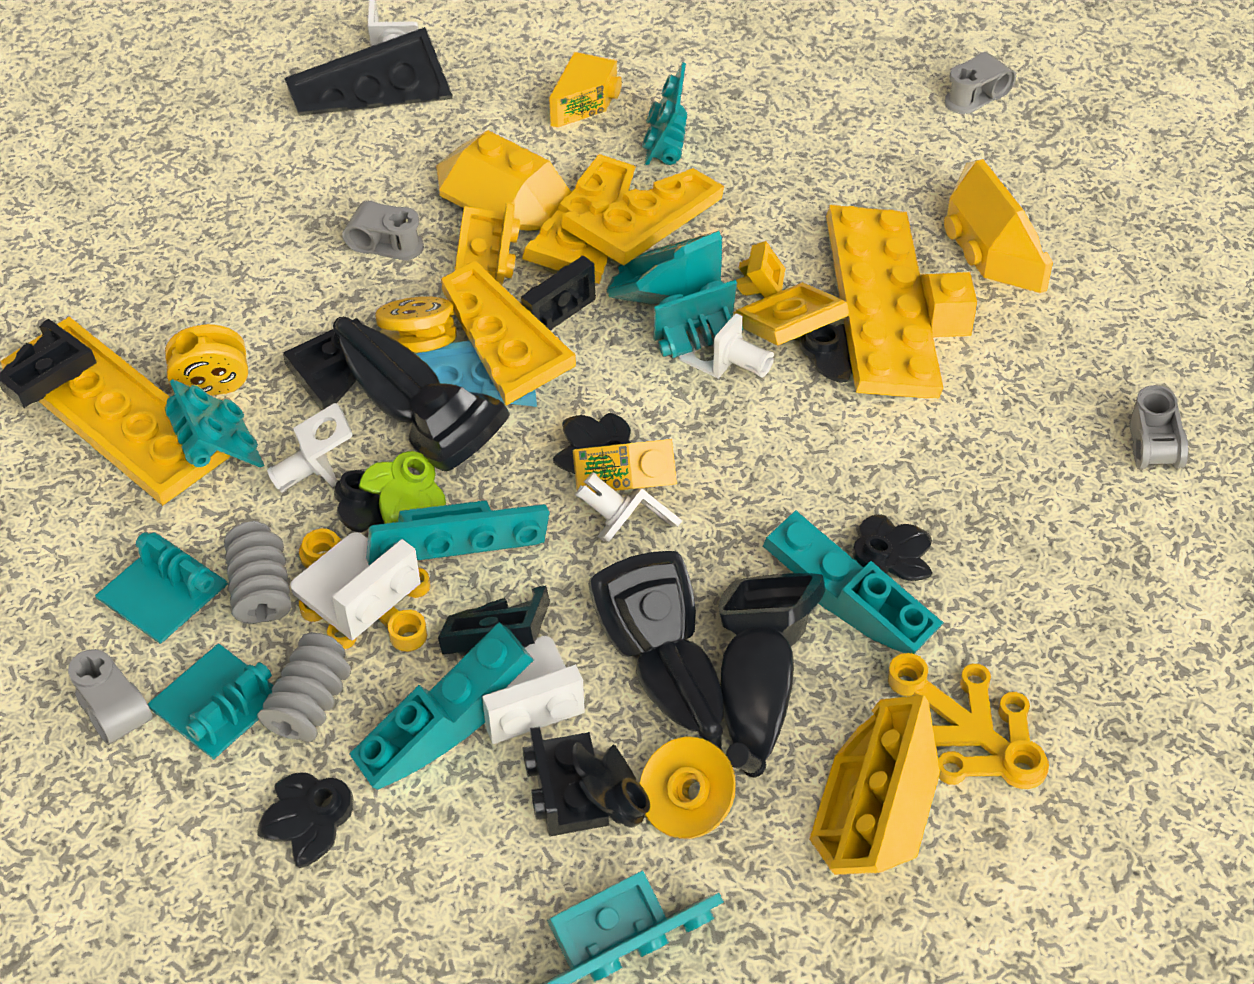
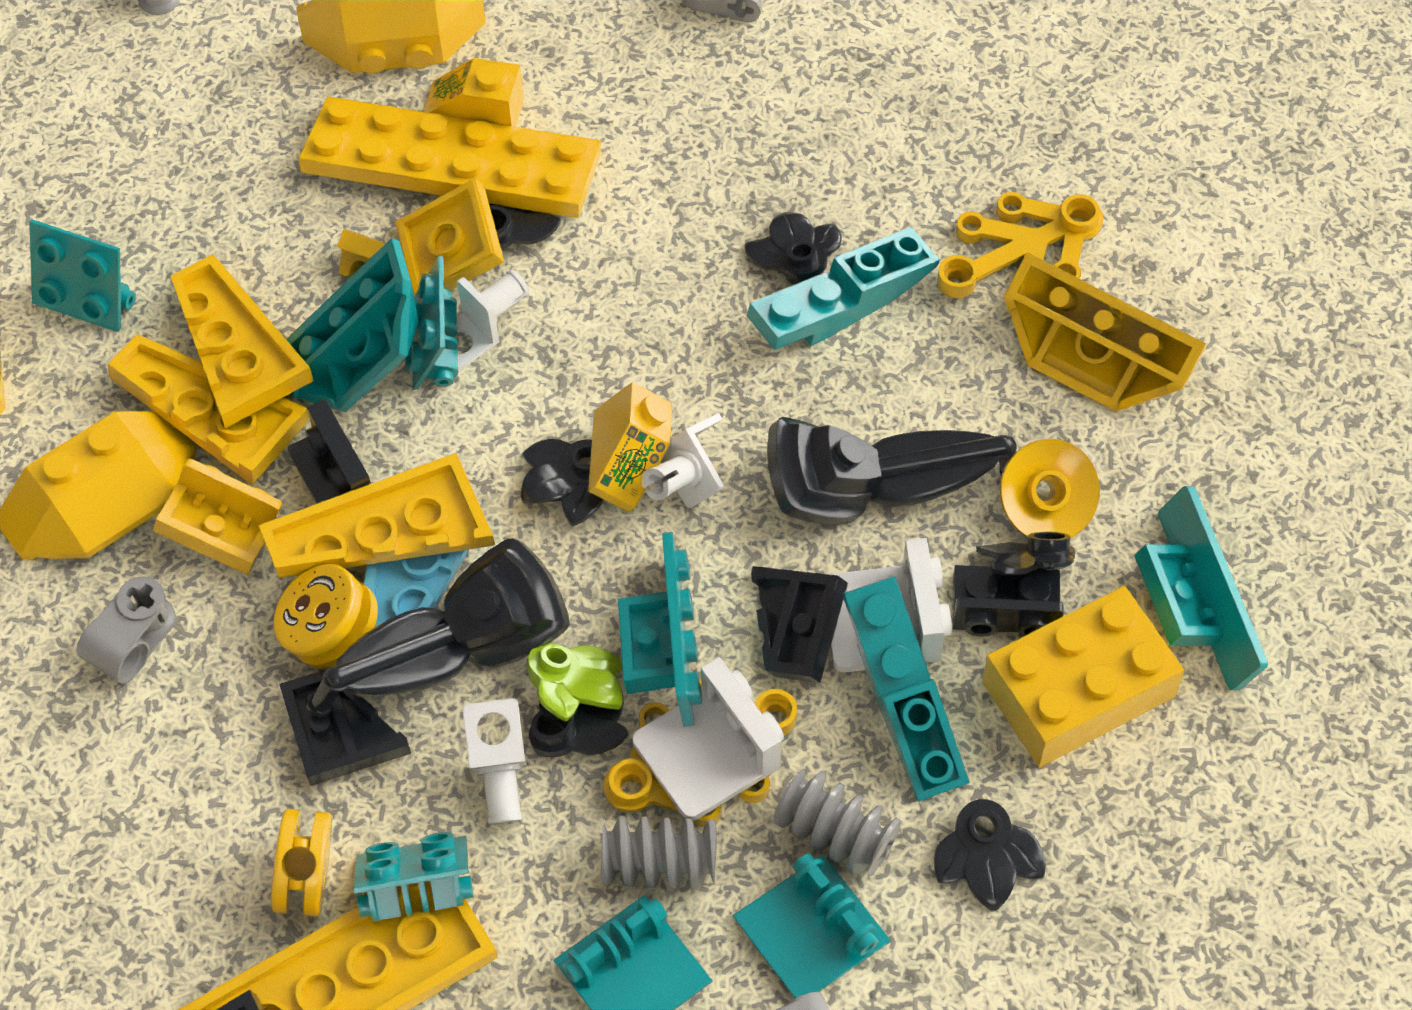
camera: 75 degrees left, 10 degrees up
(493, 849) = (1082, 676): none -> yellow brick
(758, 663) = (869, 360): black piece -> none

